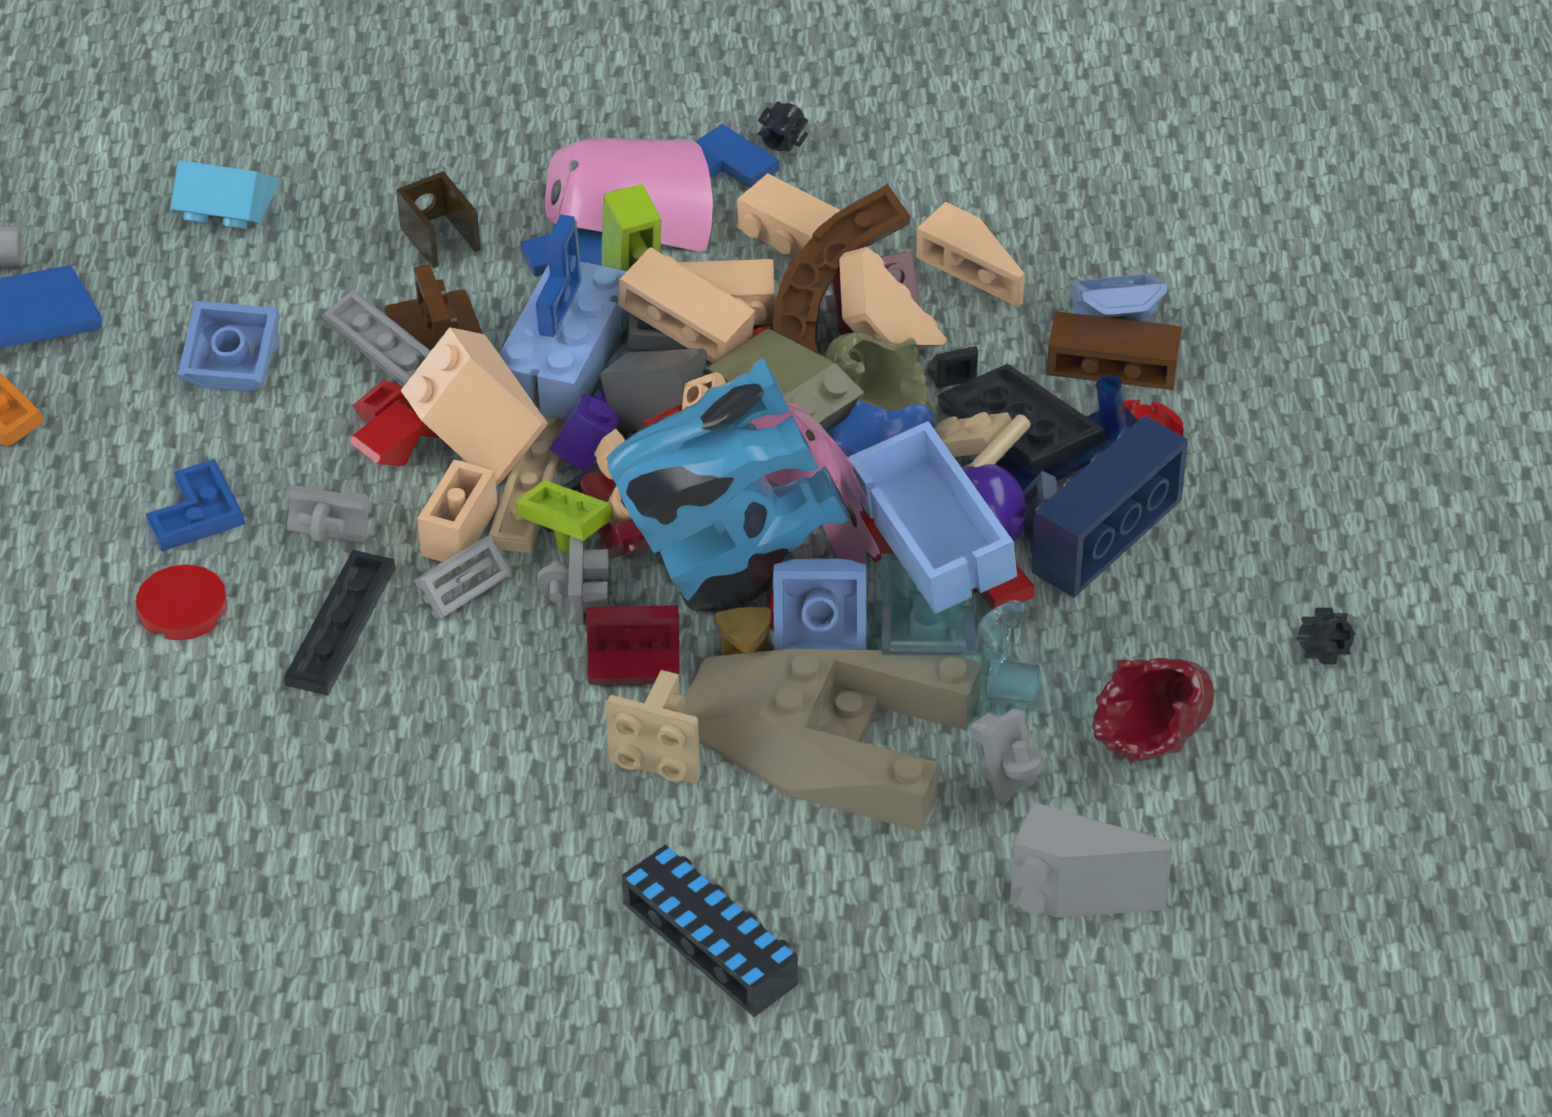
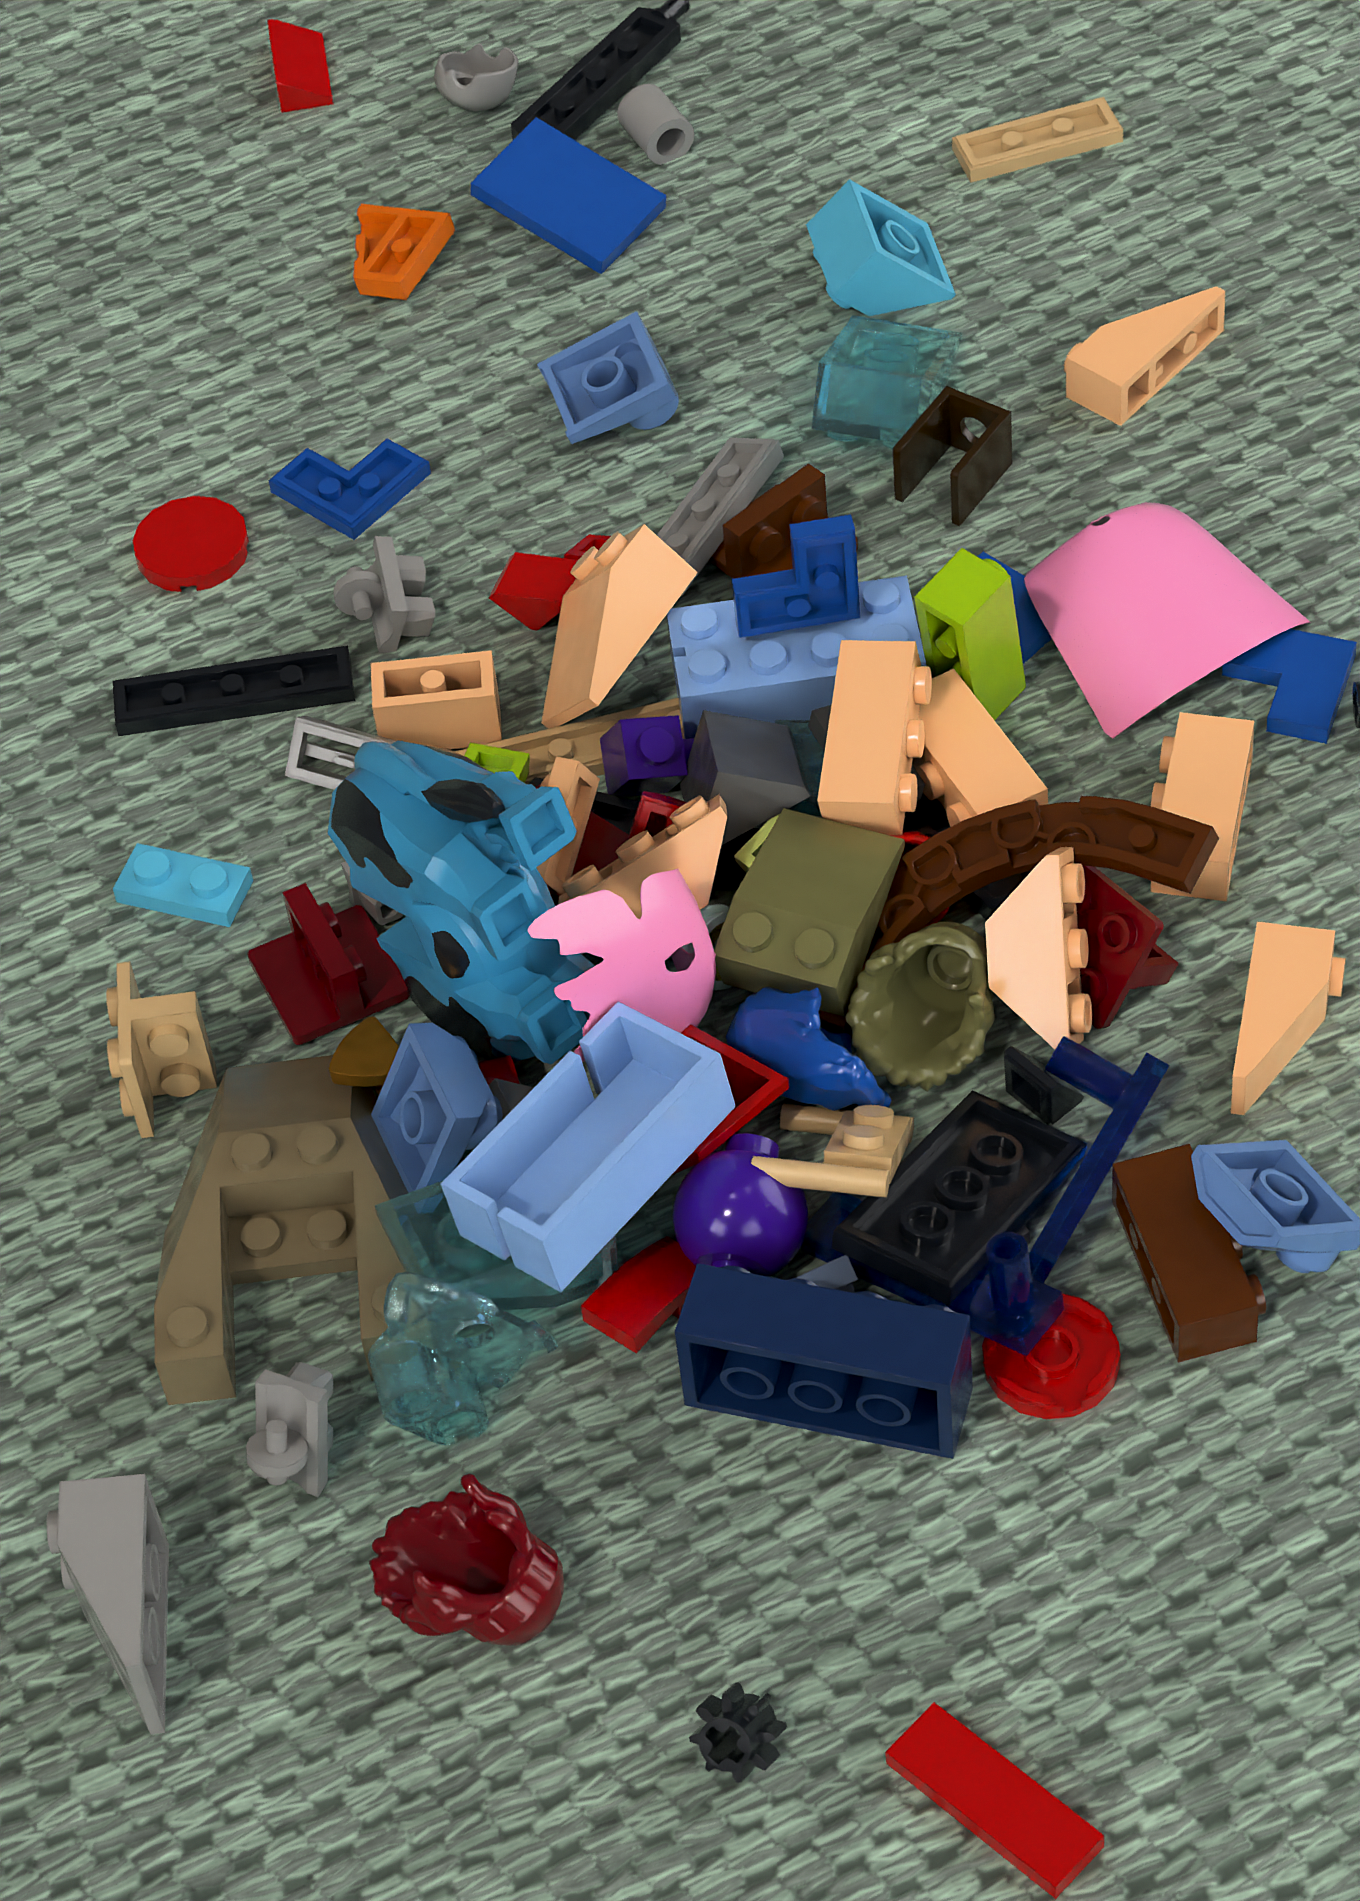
camera: 70 degrees right, 5 degrees up
(175, 94) = (1037, 139): none -> tan tile
(341, 227) = (881, 378): none -> clear light blue slope
(422, 125) = (1141, 353): none -> light nougat slope
(497, 697) = (183, 885): none -> medium azure plate
(1014, 344) = (1128, 1097): none -> clear blue piece
(1415, 558) = (995, 1800): none -> red tile

